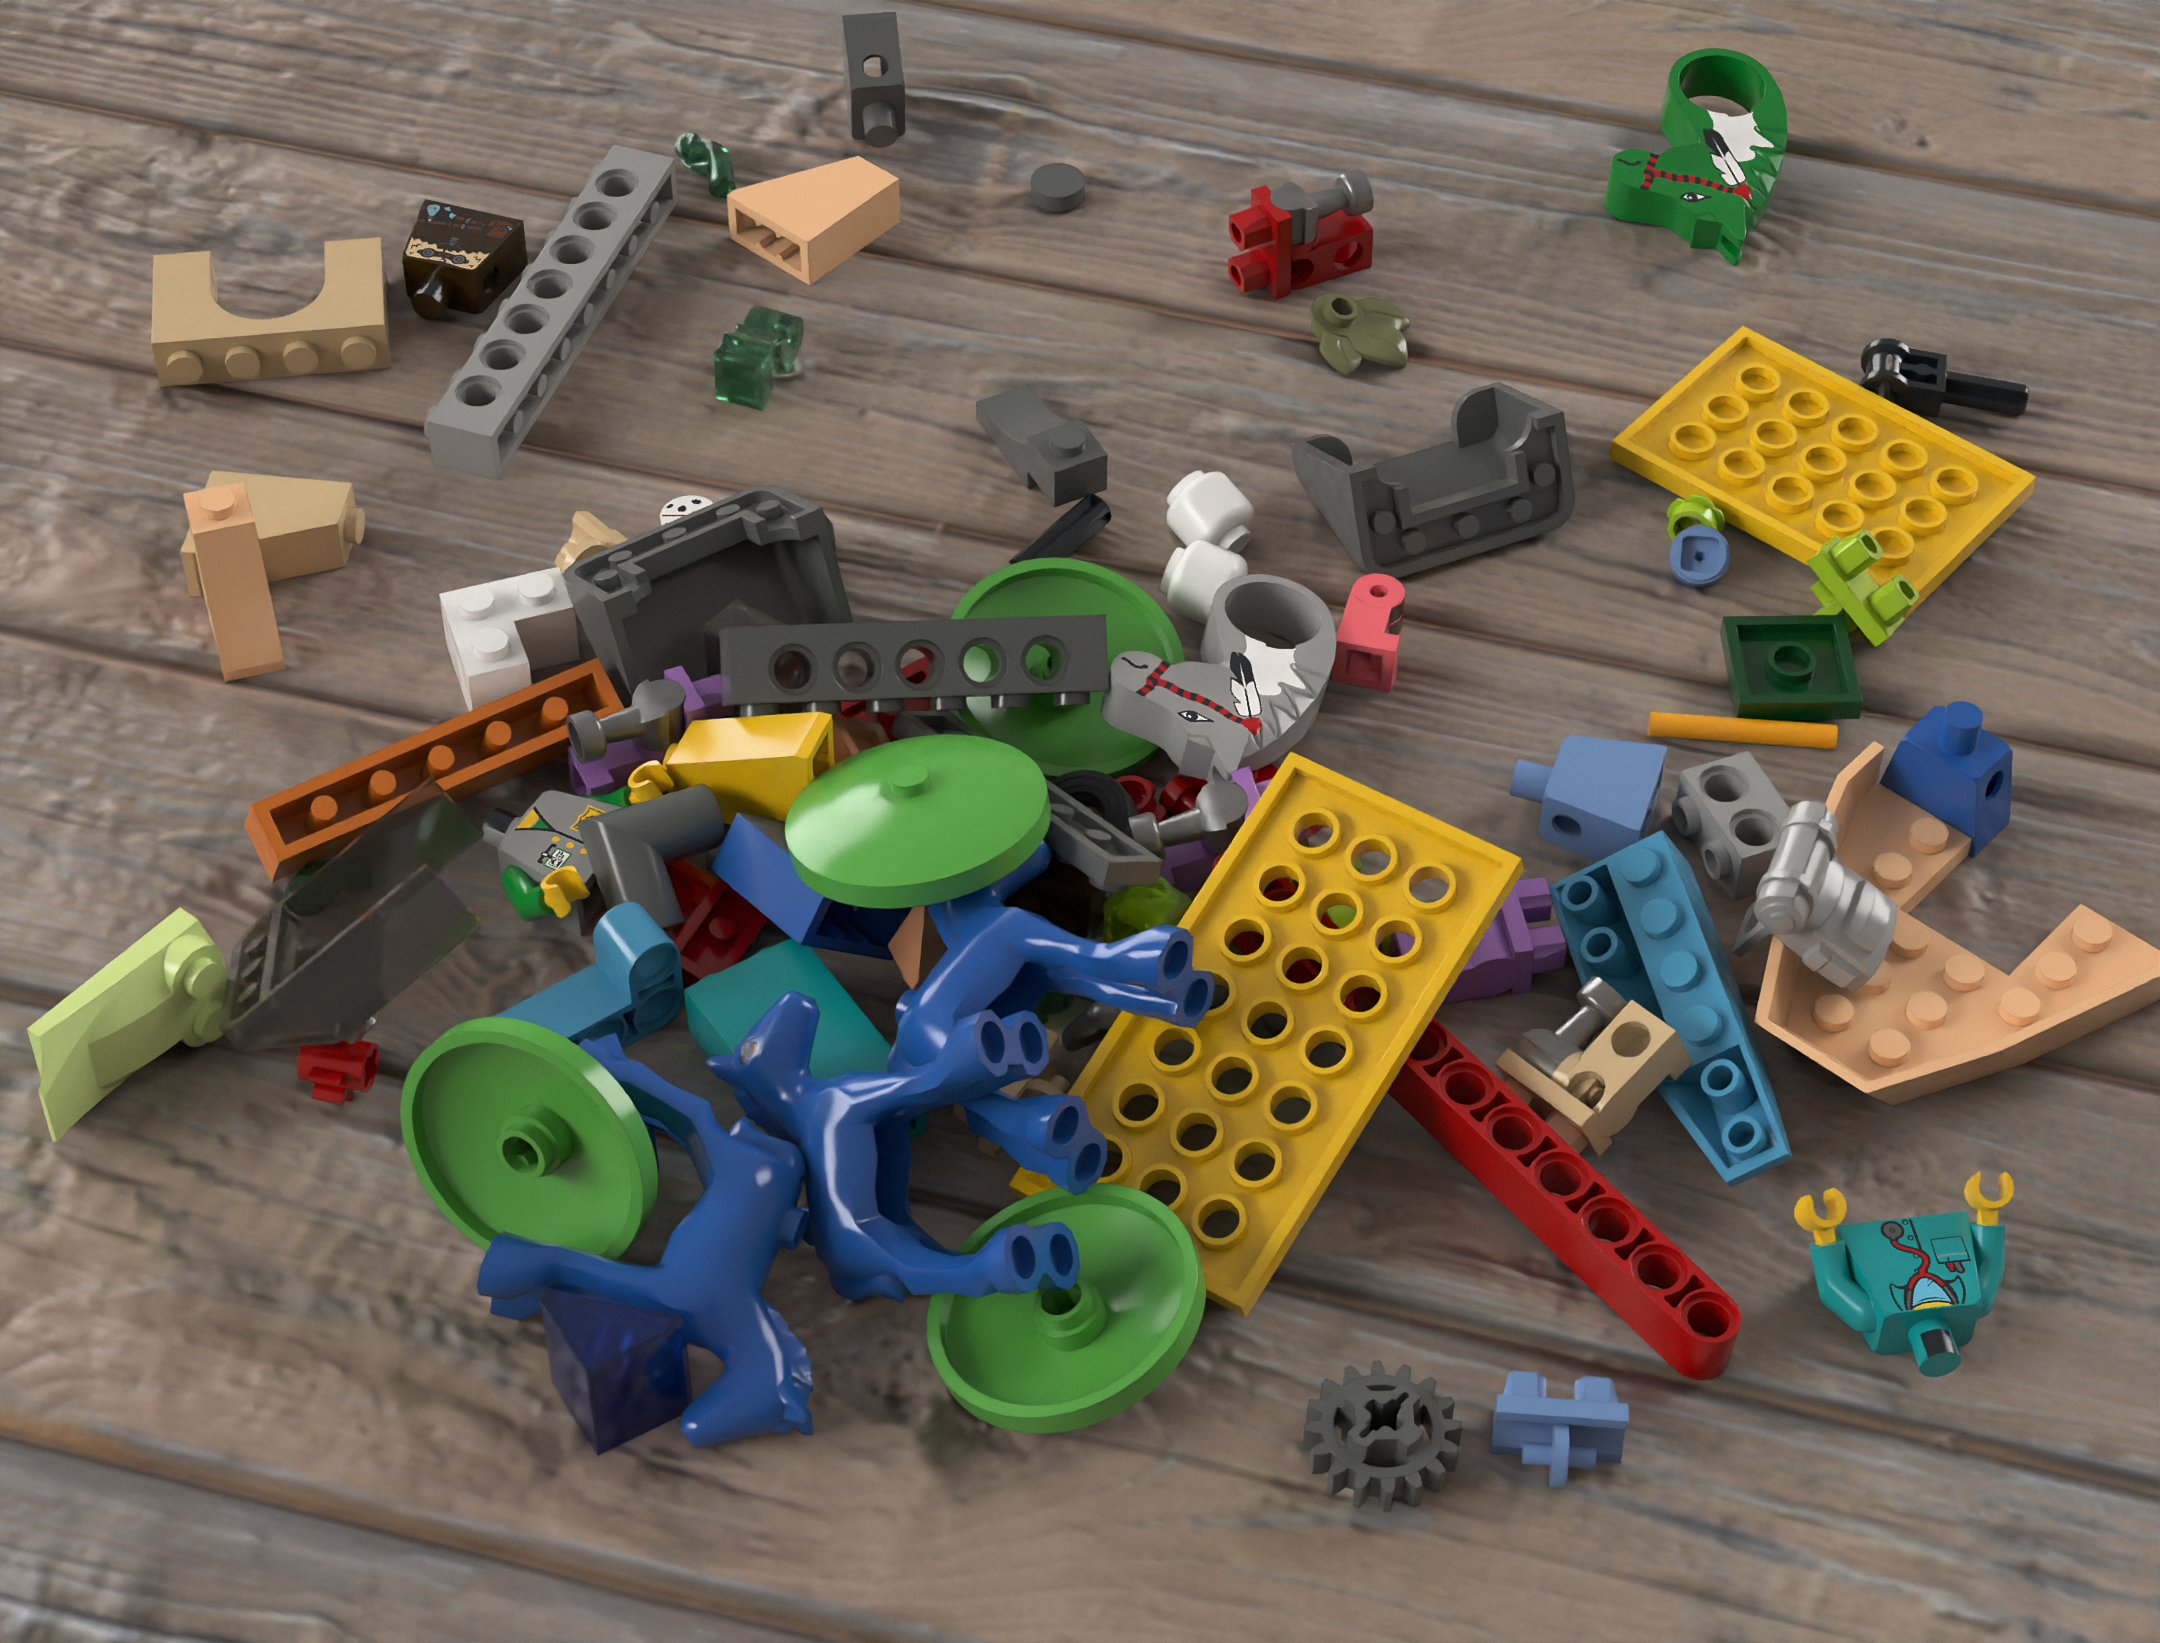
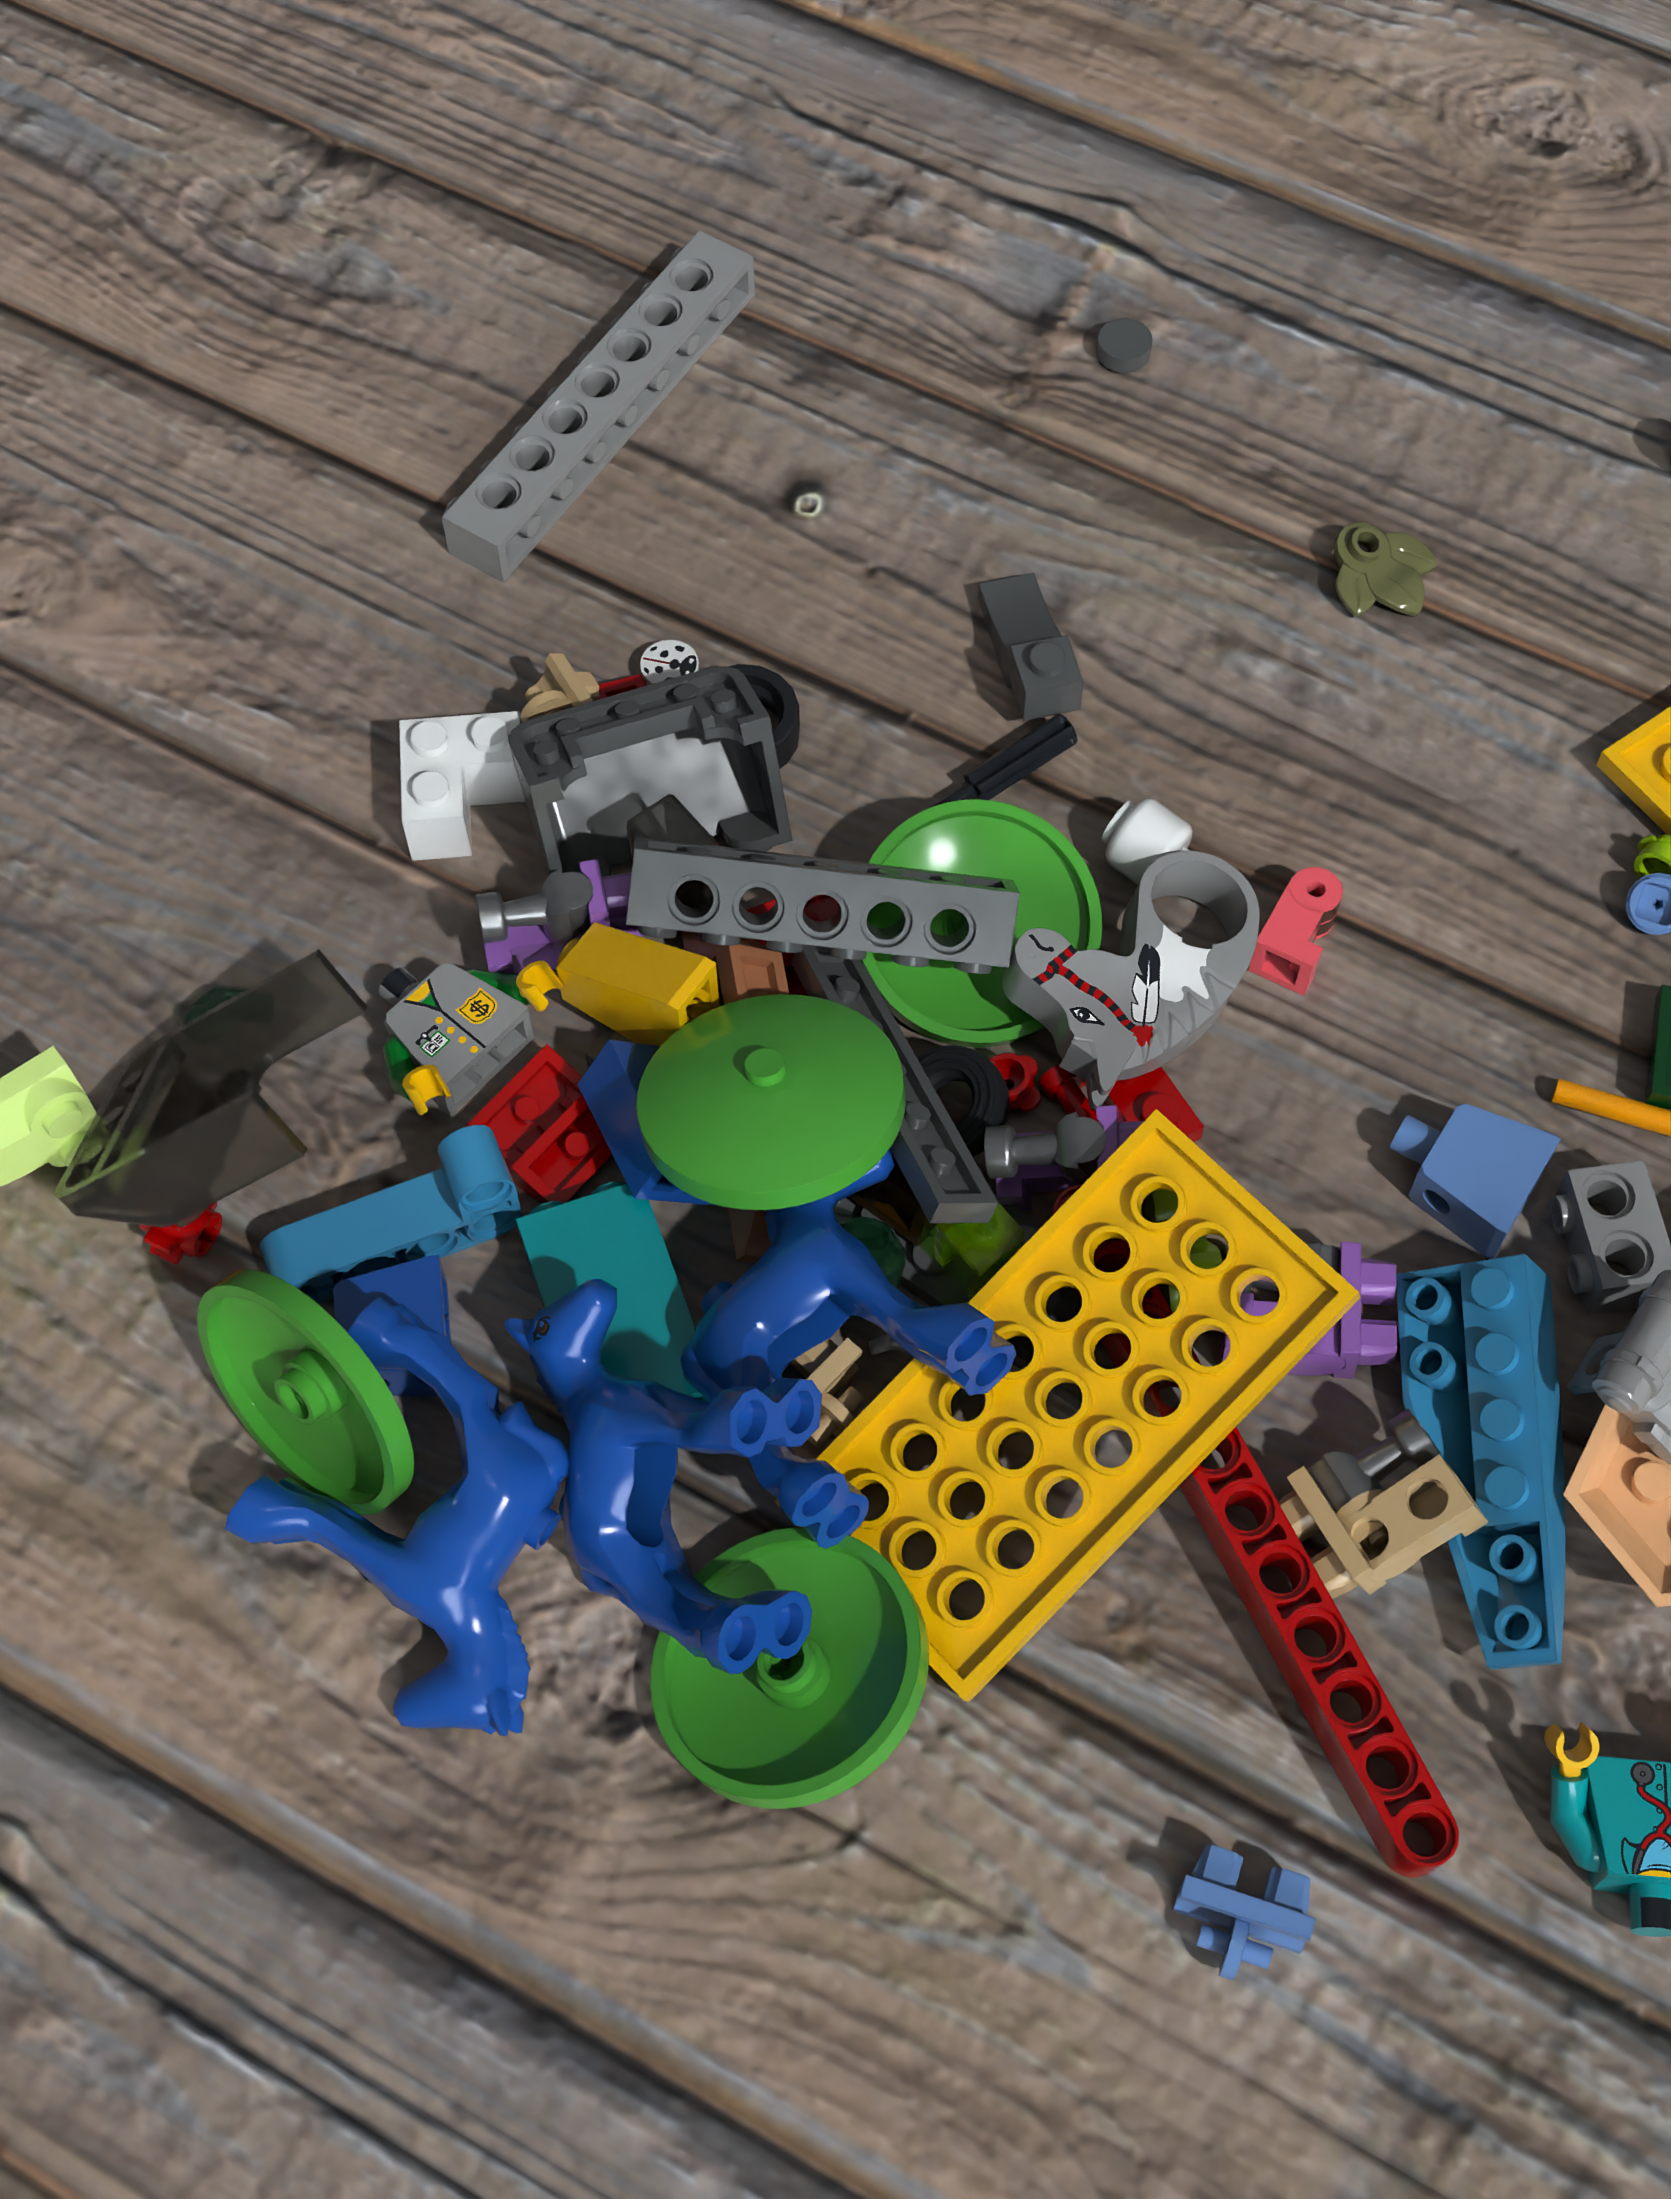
camera: 15 degrees right, 15 degrees up
(234, 581) = (214, 667): light nougat slope -> none
(298, 522) = (268, 606): tan slope -> none
(333, 334) = (392, 393): tan arch -> none
(460, 755) = (346, 913): orange brick -> none
(461, 259) = (526, 331): dark brown torso -> none
(616, 1365) = (337, 1642): clear blue slope -> none
(637, 841) = (505, 1047): dark grey brick -> none
(707, 160) = (794, 256): clear green arm -> none
(748, 356) = (765, 494): clear green leg -> none
(815, 216) = (878, 340): light nougat slope -> none
(874, 103) = (970, 212): dark grey torso -> none
(1211, 511) = (1173, 761): white head -> none
(1302, 236) = (1348, 454): red hips -> none
(1382, 1436) = (1083, 1907): dark grey gear -> none
(1484, 490) = (1421, 780): dark grey windscreen -> none

